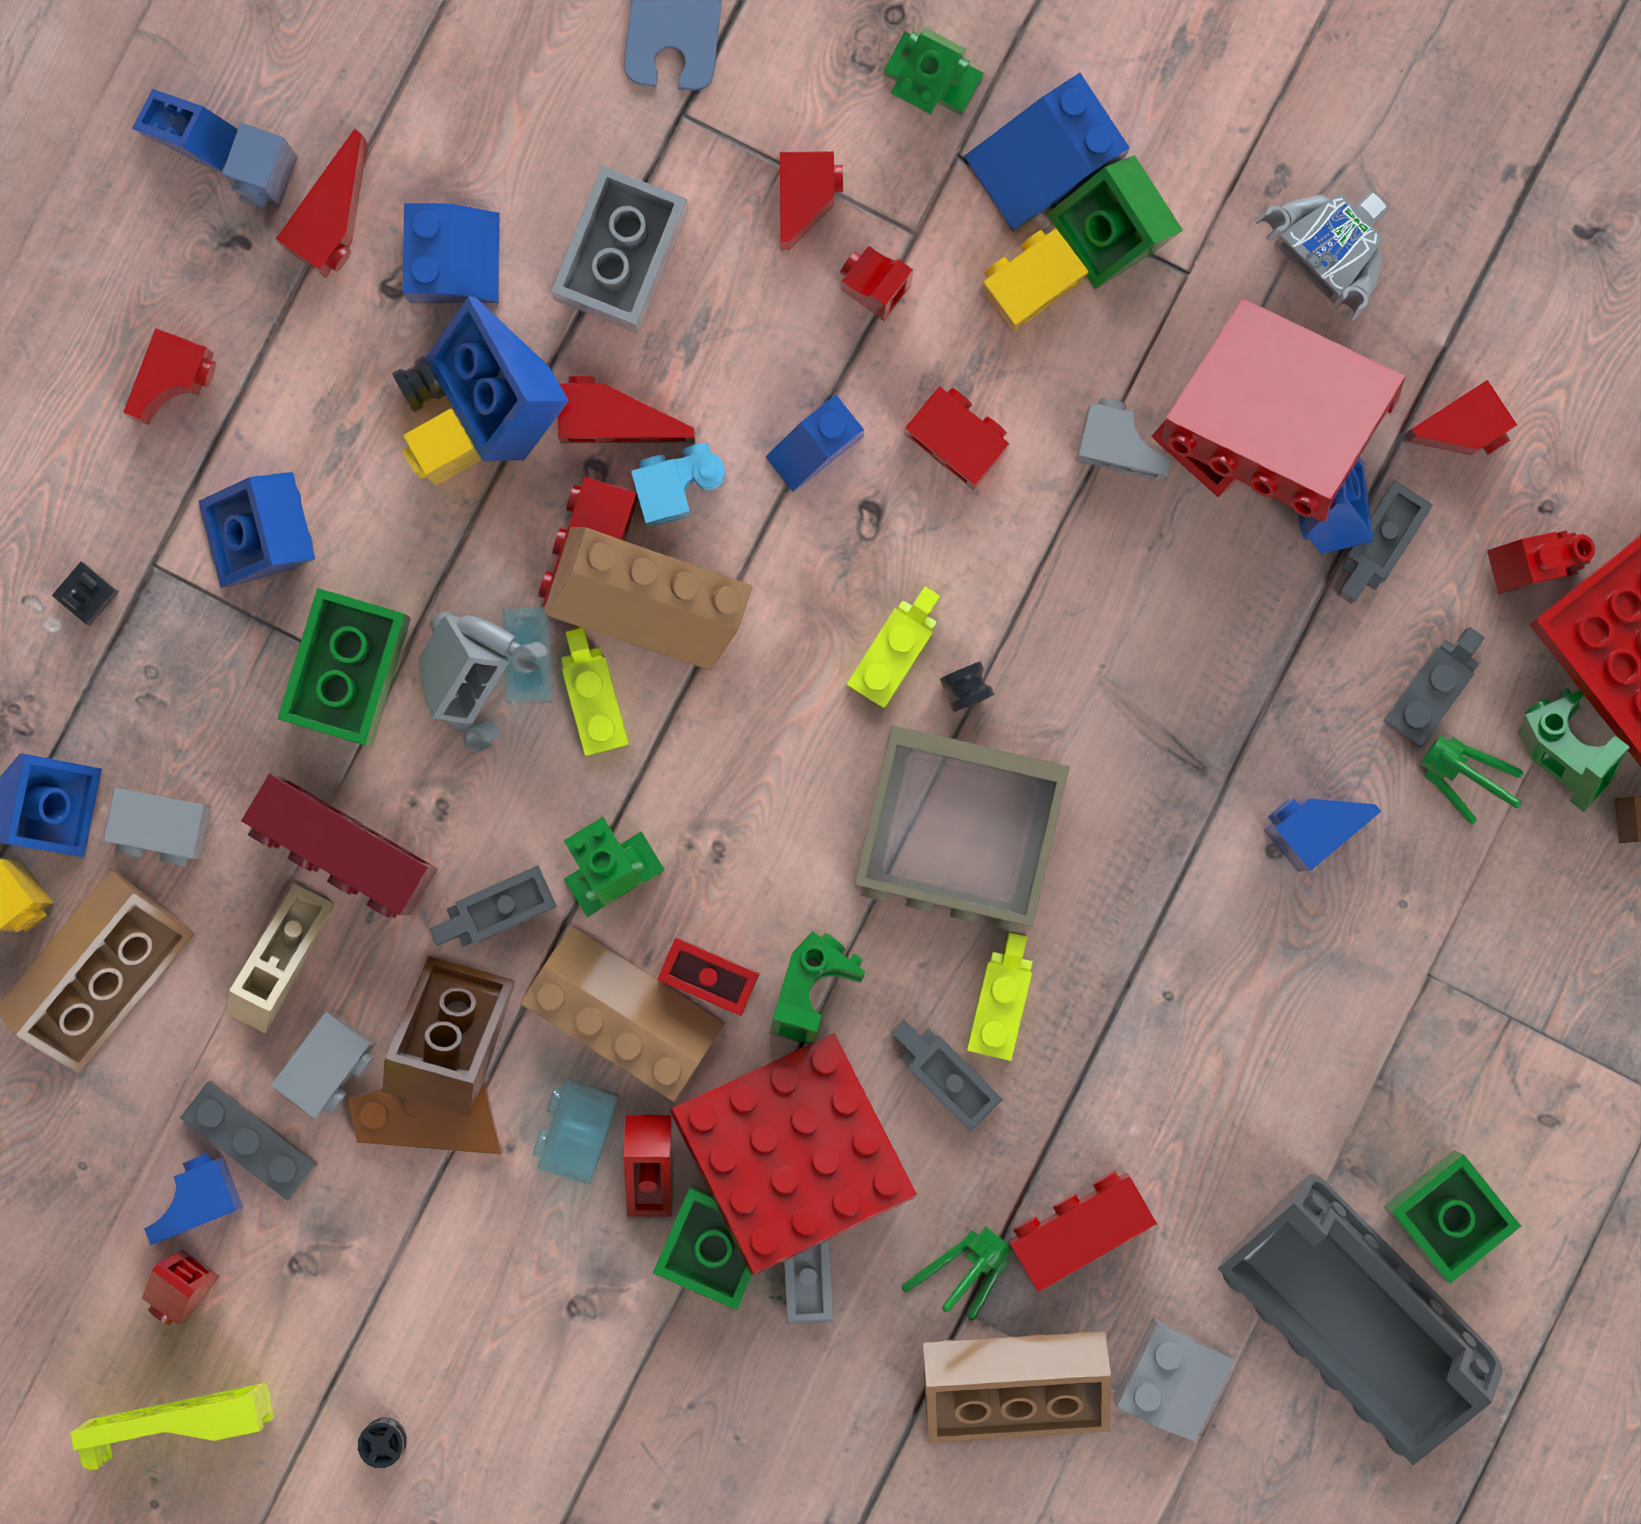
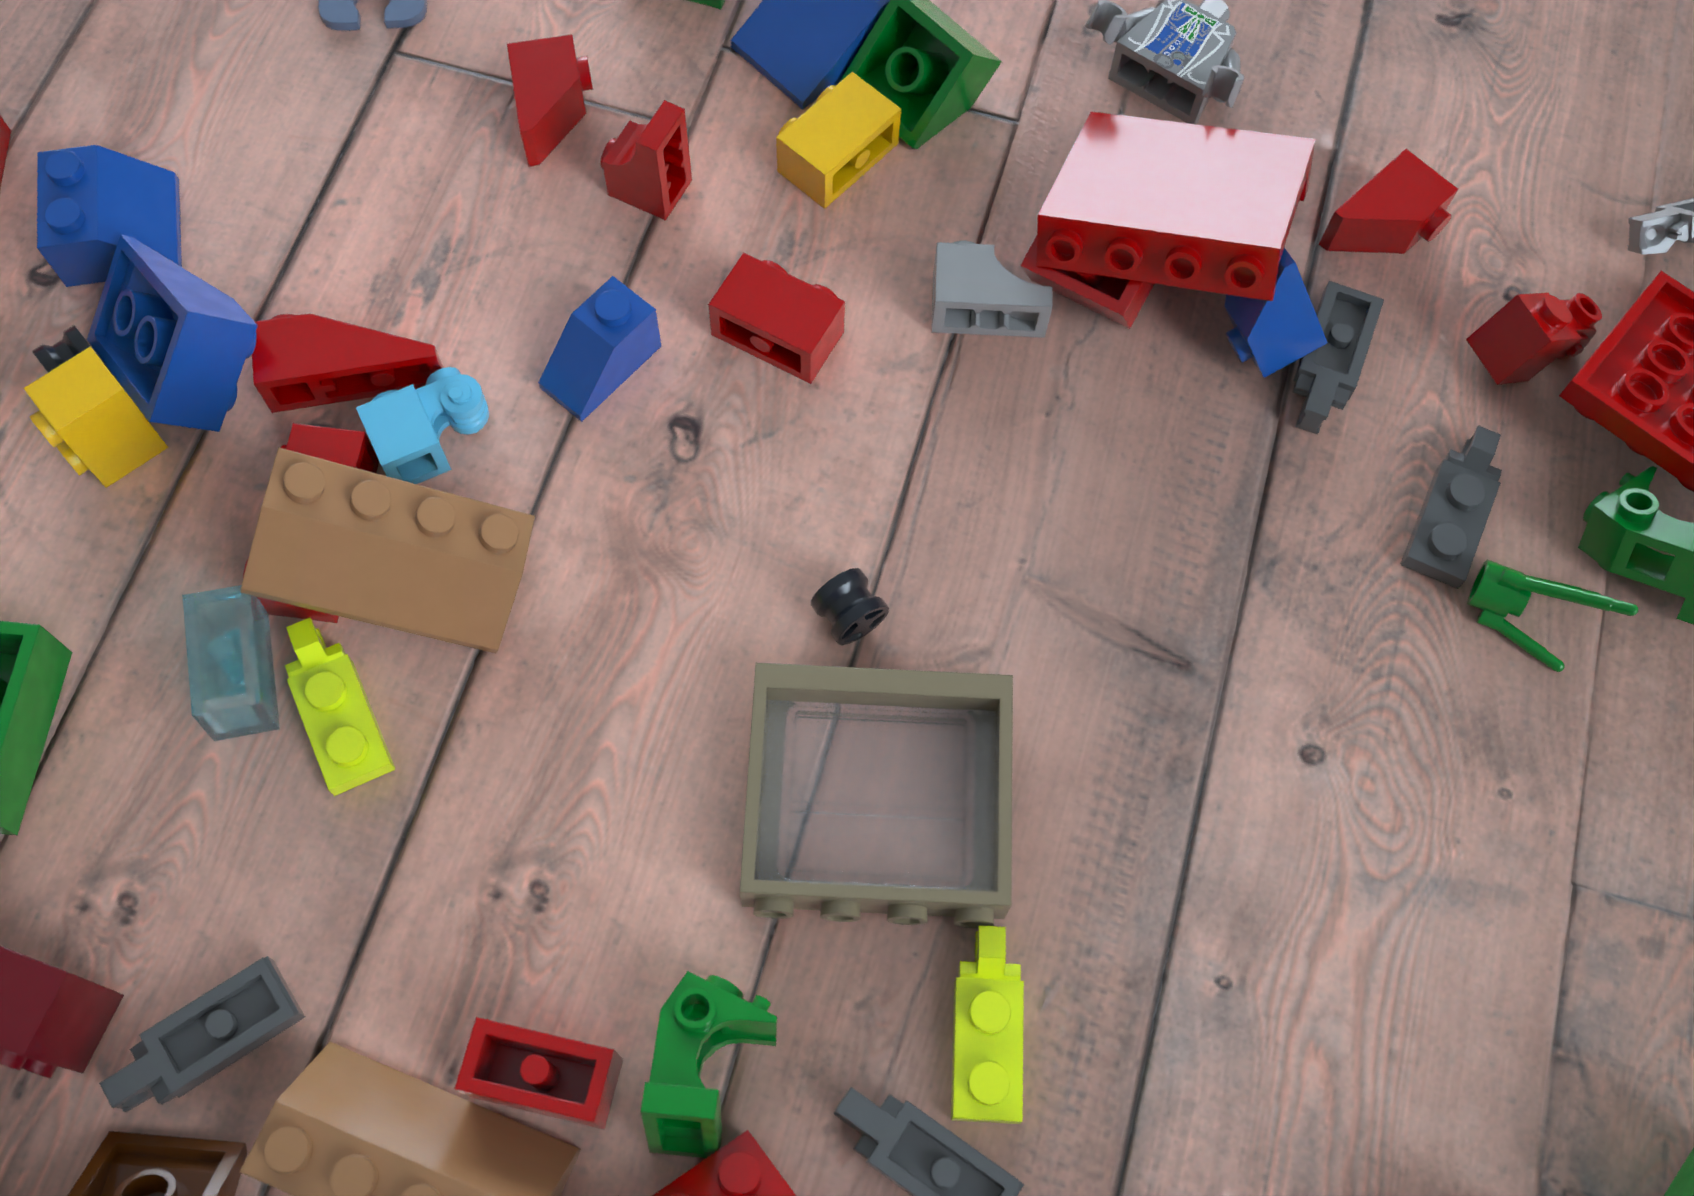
camera: 15 degrees left, 20 degrees down
(464, 666) = (132, 691): light grey torso -> none
(608, 867) = (369, 938): green tile -> none
(620, 249) = (320, 173): light grey brick -> none
(895, 649) = (744, 581): neon yellow hinge -> none
(1316, 828) = (1367, 697): blue slope -> none

